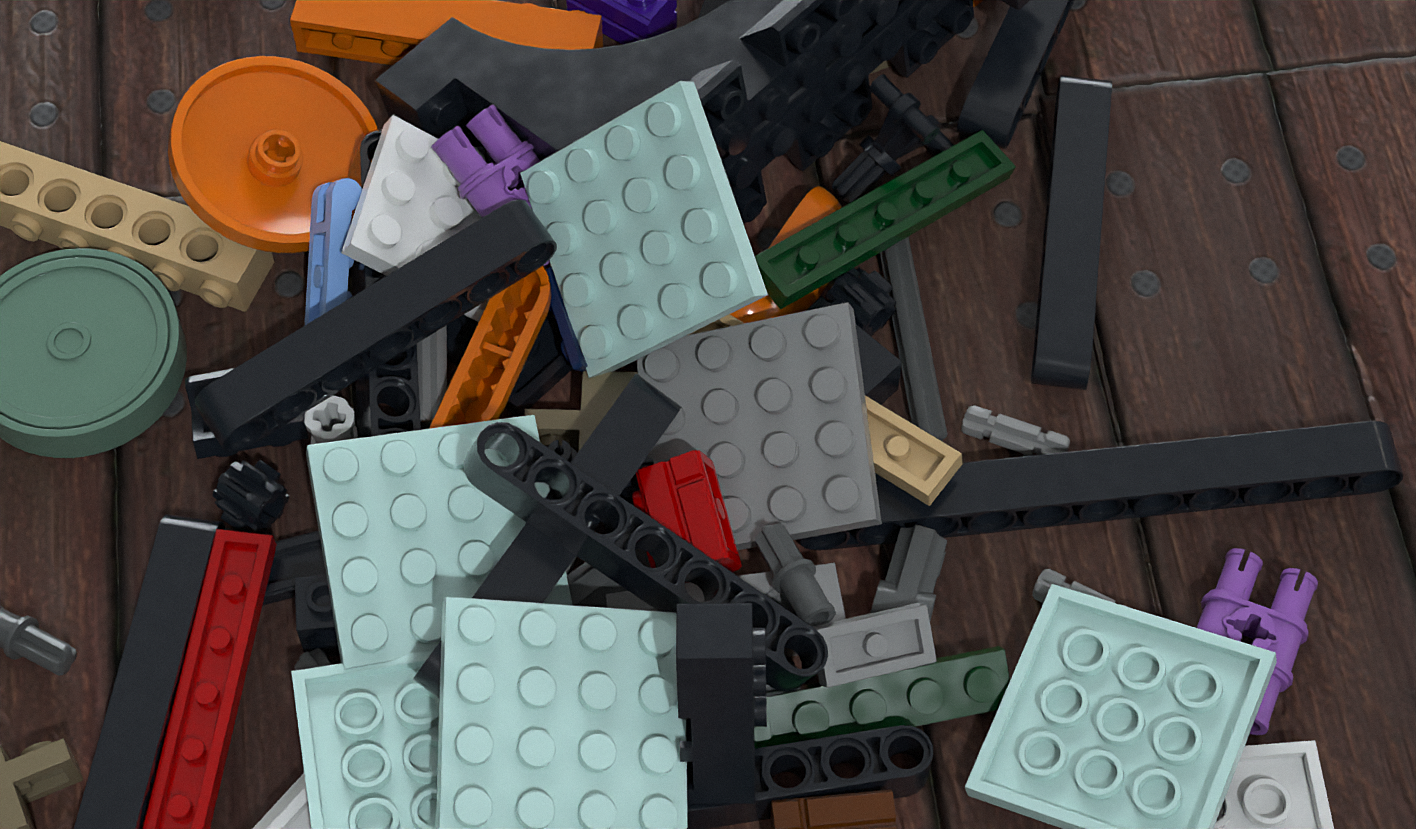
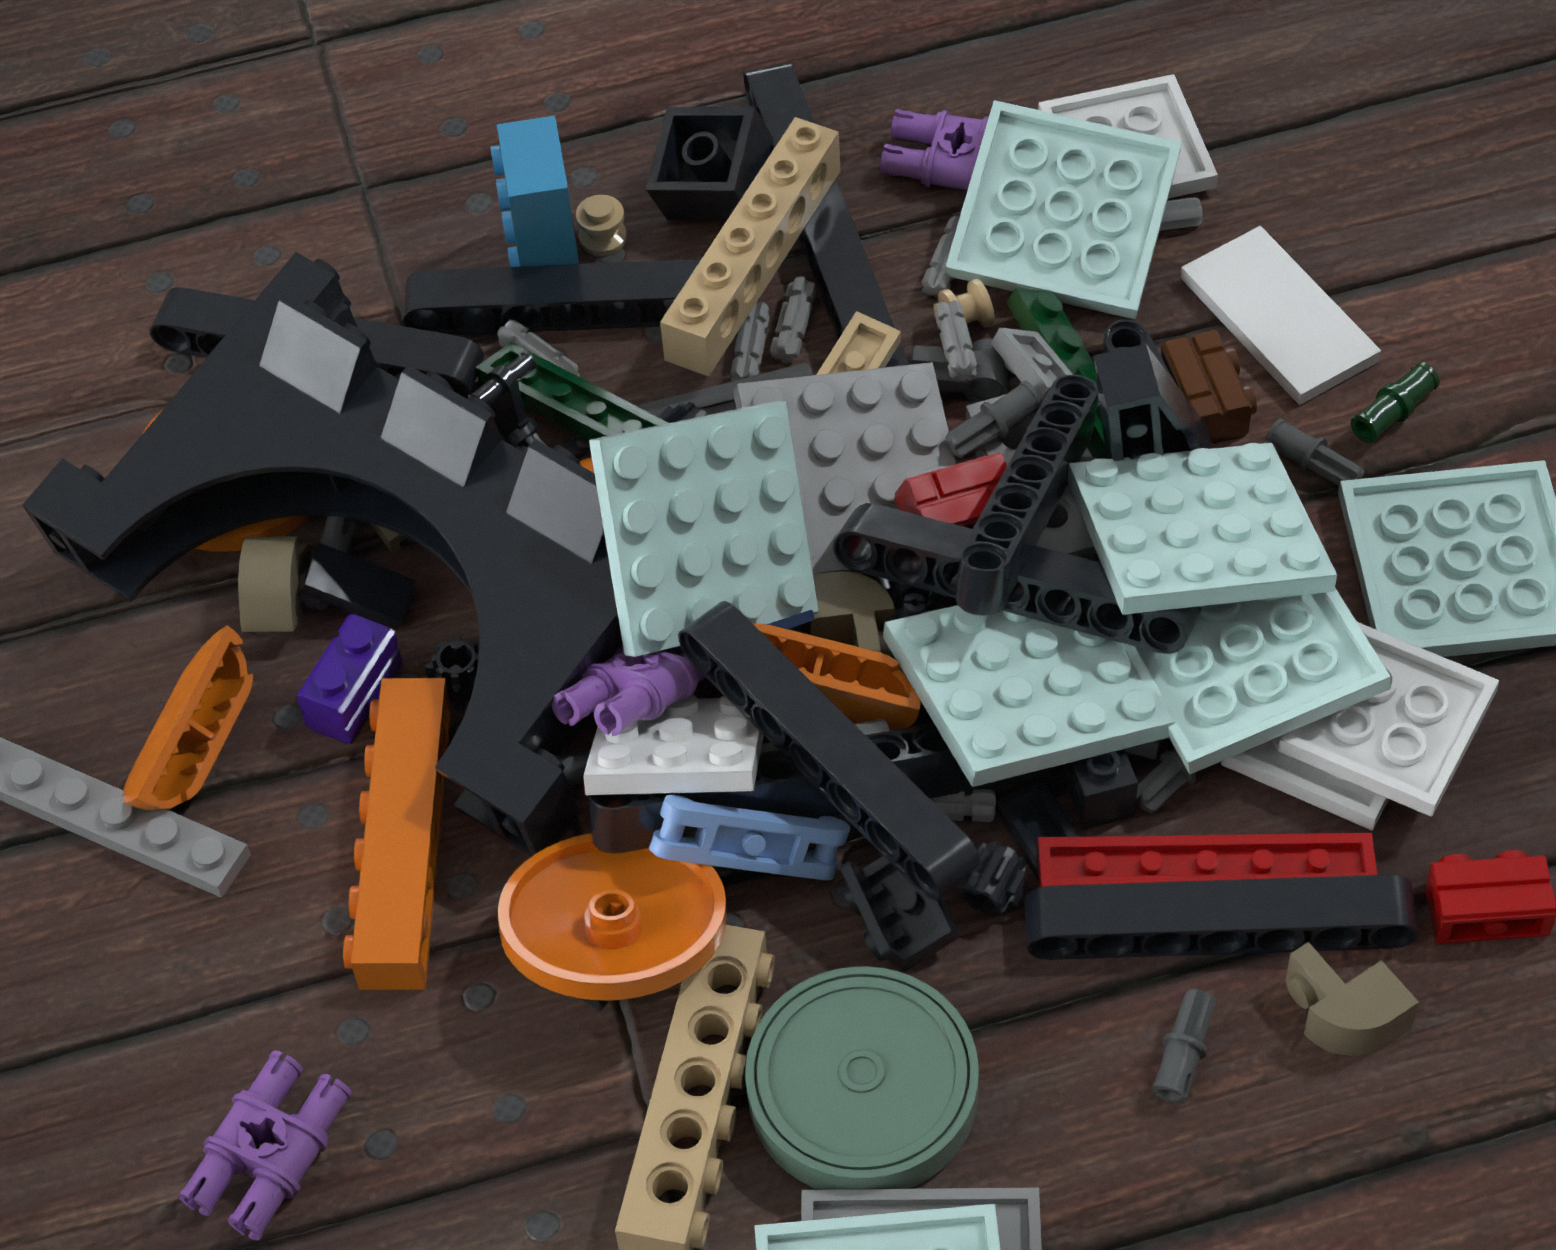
camera: 95 degrees left, 5 degrees down
(924, 564) = (956, 341): none -> light grey axle
(988, 389) = (750, 343): none -> light grey axle
(995, 593) = (975, 303): none -> tan wheel
(1004, 196) = (516, 333): none -> light grey axle
(1085, 373) = (750, 247): none -> tan brick
(1169, 178) = (534, 193): none -> dark azure brick
(1174, 266) = (601, 225): none -> tan wheel
(1229, 361) = (707, 160): none -> black brick

